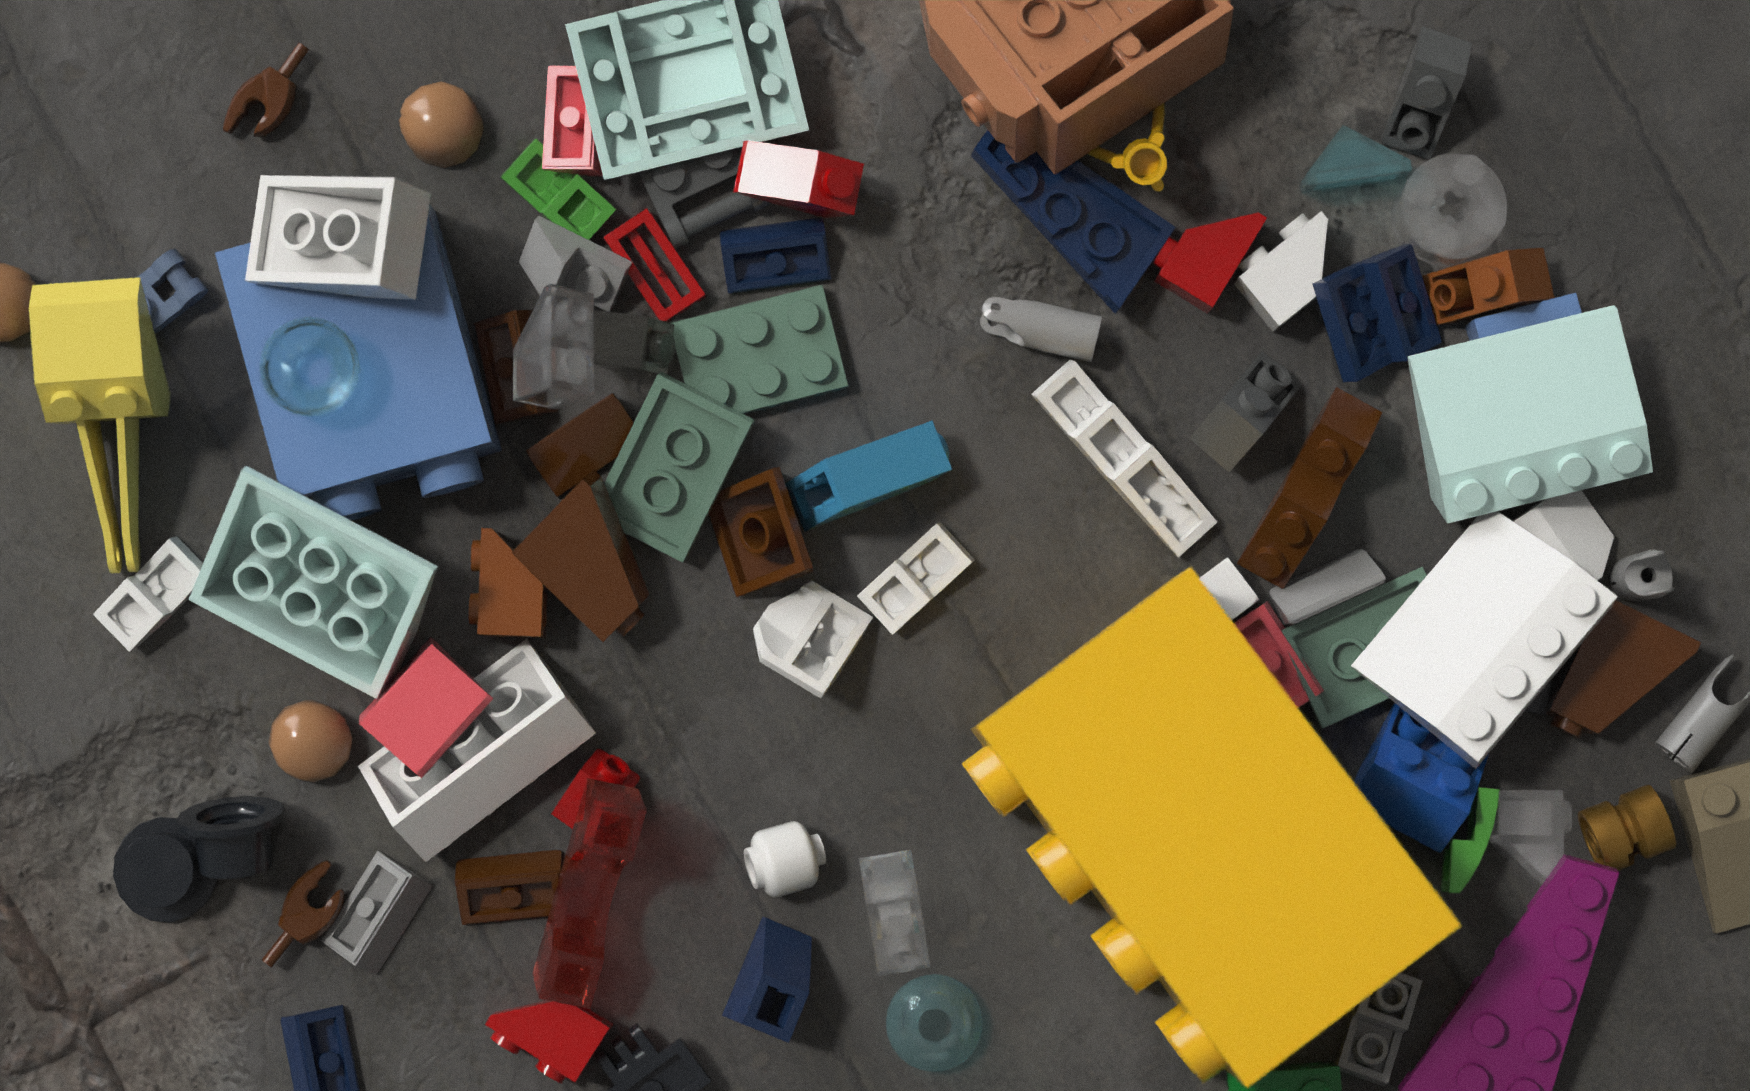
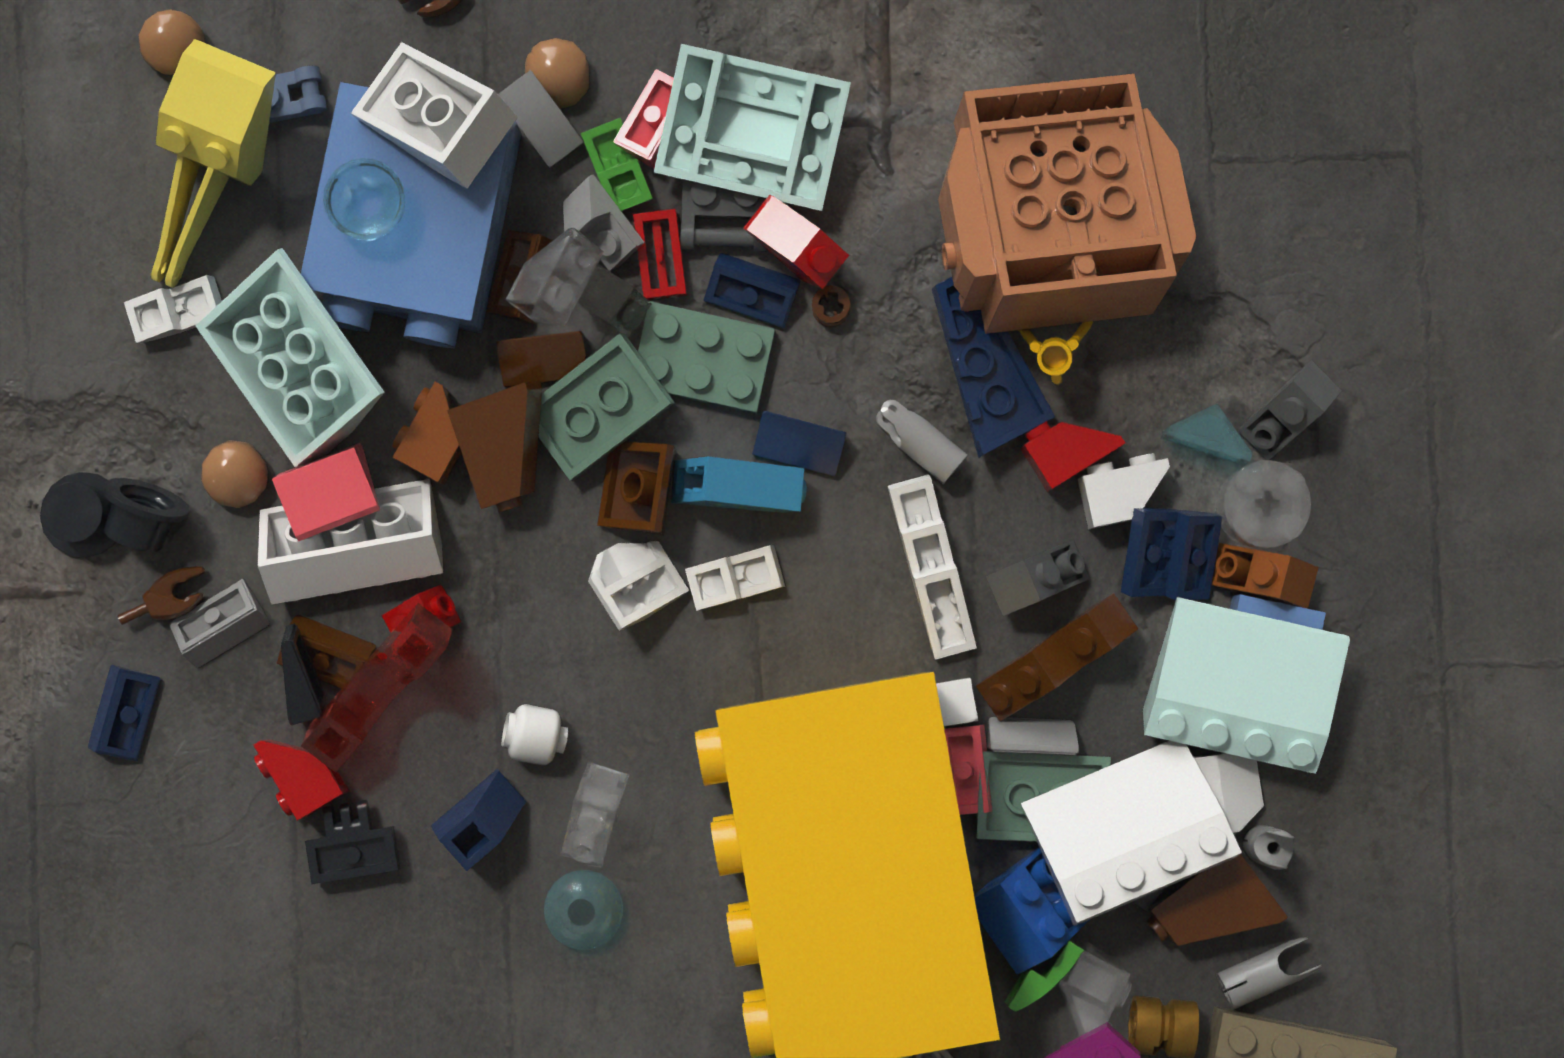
camera: 25 degrees right, 0 degrees up
(452, 183) = (540, 119): none -> light grey slope
(506, 935) = (302, 686): none -> black slope
(881, 217) = (843, 302): none -> reddish brown bush
(912, 396) = (799, 443): none -> dark blue slope

